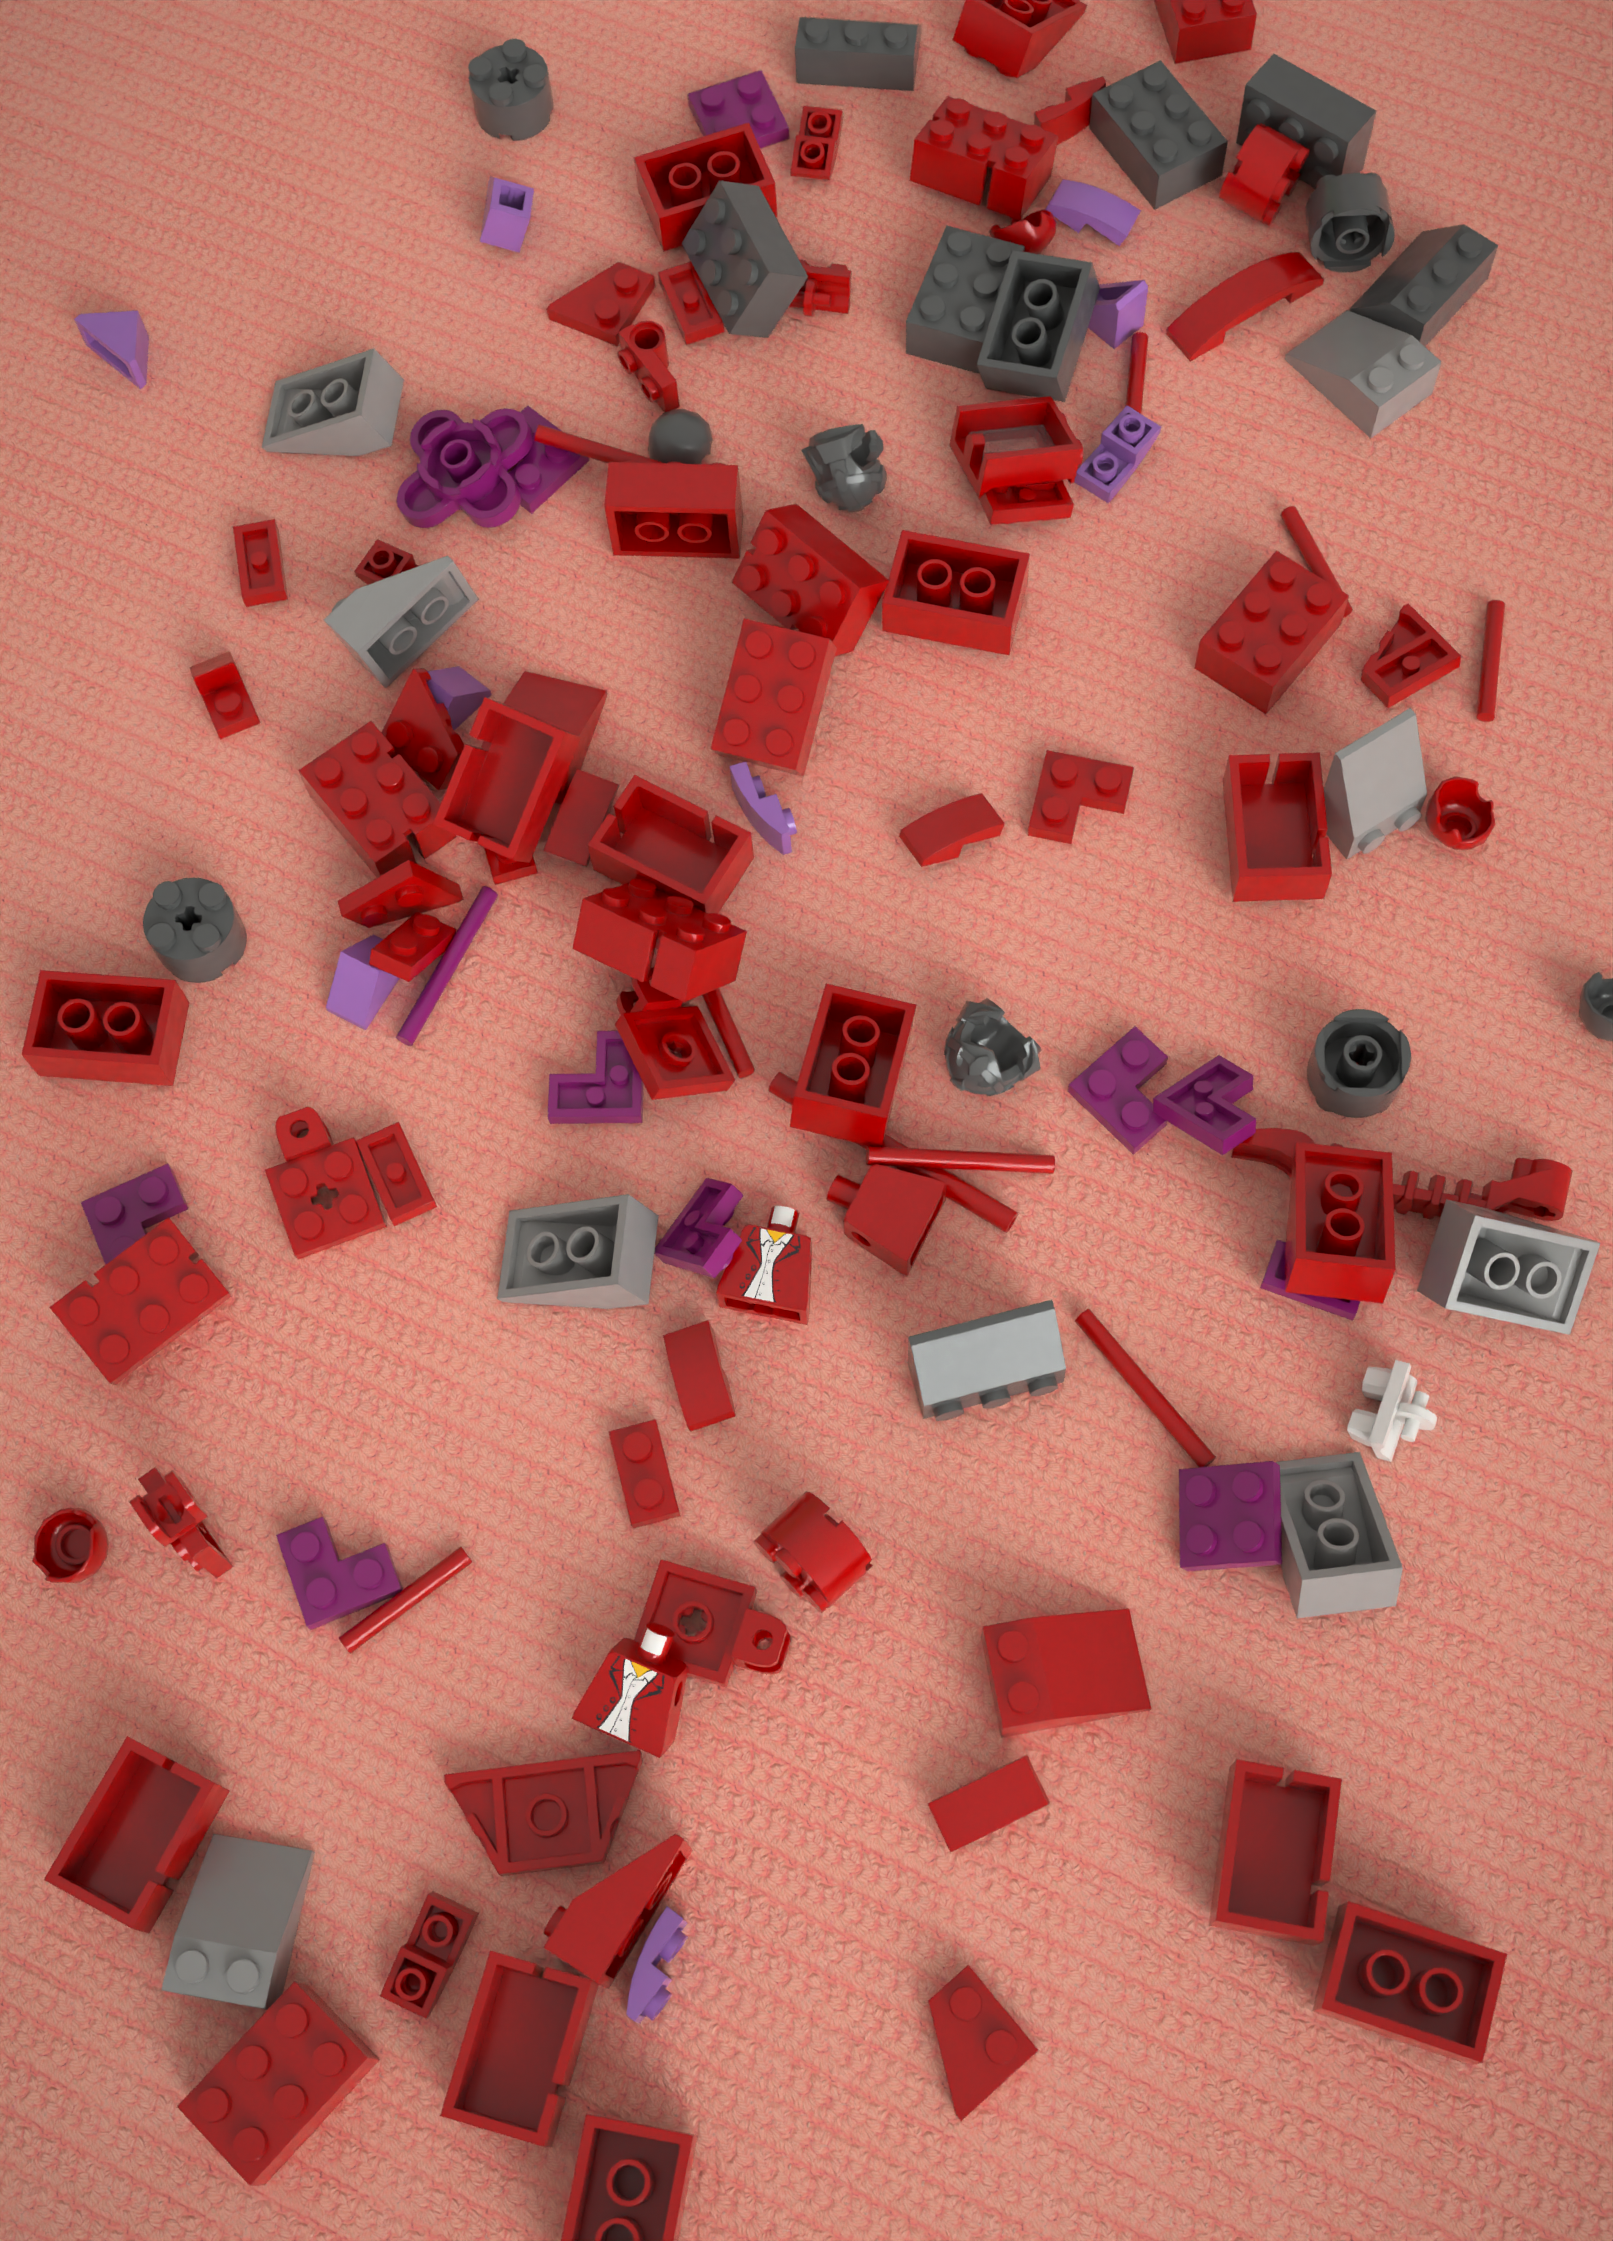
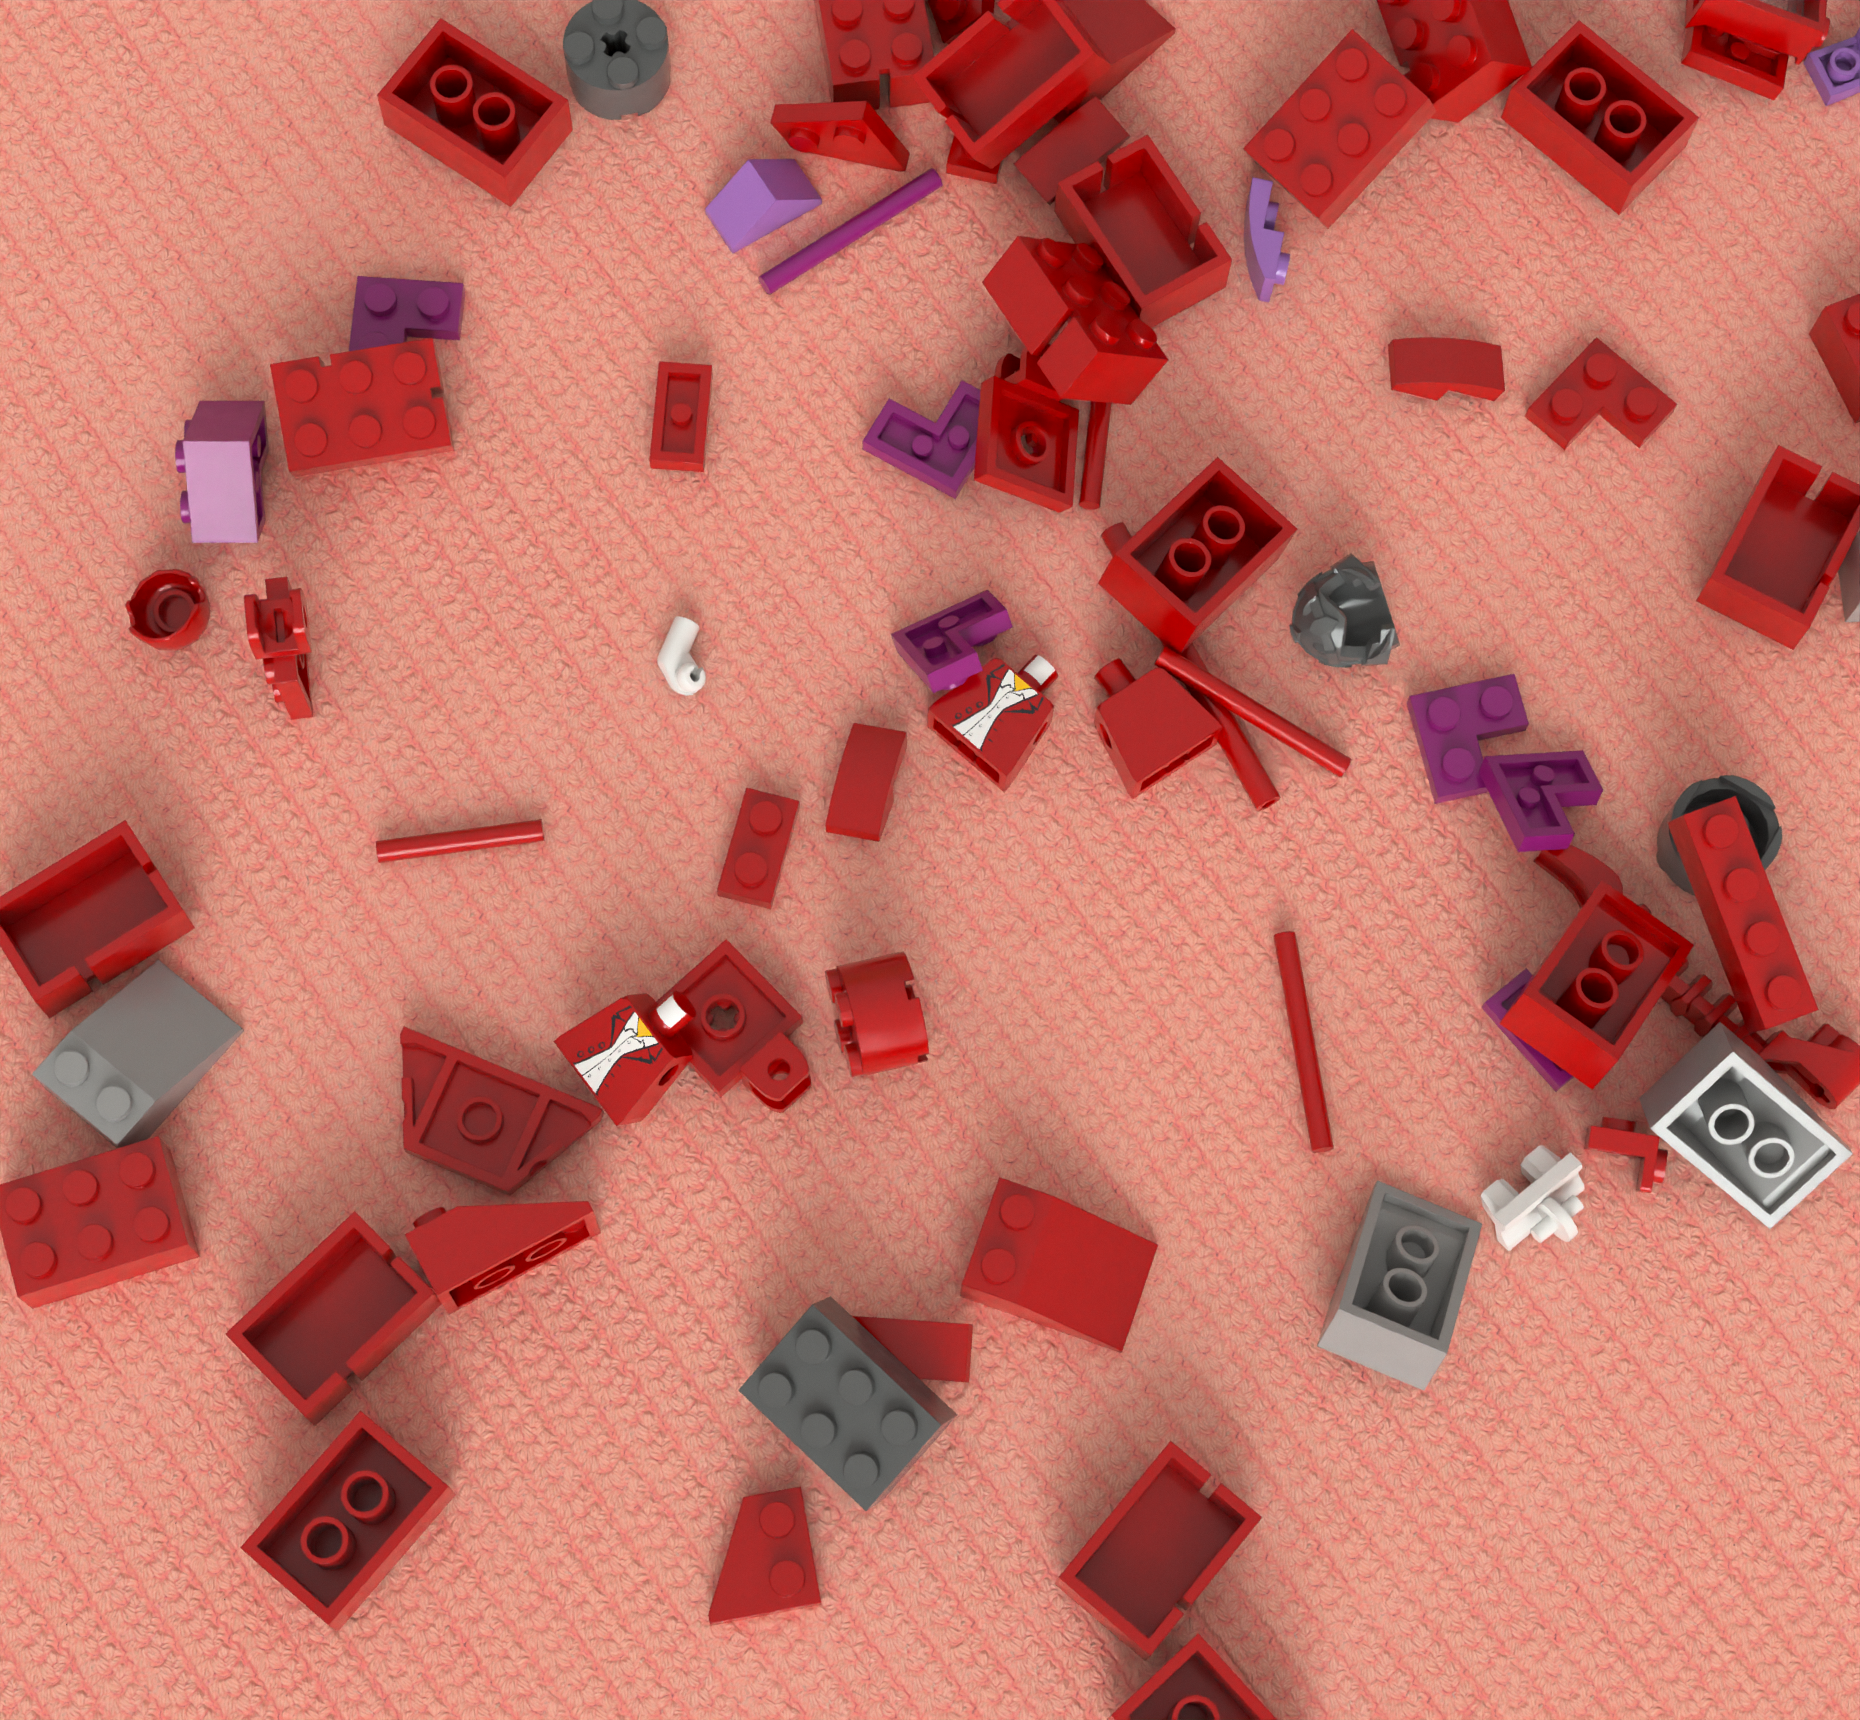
camera: 20 degrees right, 5 degrees up
(53, 1407) = (223, 469): none -> brick
(316, 1164) = (607, 363): red plate -> none
(333, 1587) = (393, 785): magenta plate -> none
(412, 946) = (824, 192): red plate -> none
(429, 1955) = (299, 1187): red slope -> none
(499, 1364) = (676, 661): none -> white arm
(580, 1254) = (817, 597): light grey slope -> none
(648, 1983) = (487, 1331): medium lavender slope -> none
(969, 1876) = (847, 1402): none -> dark grey brick
(987, 1361) = (1158, 925): slope -> none
(1230, 1516) = (1310, 1211): magenta plate -> none
(1417, 1111) = (1742, 915): none -> red brick
(1422, 1328) = (1620, 1138): none -> red bracket

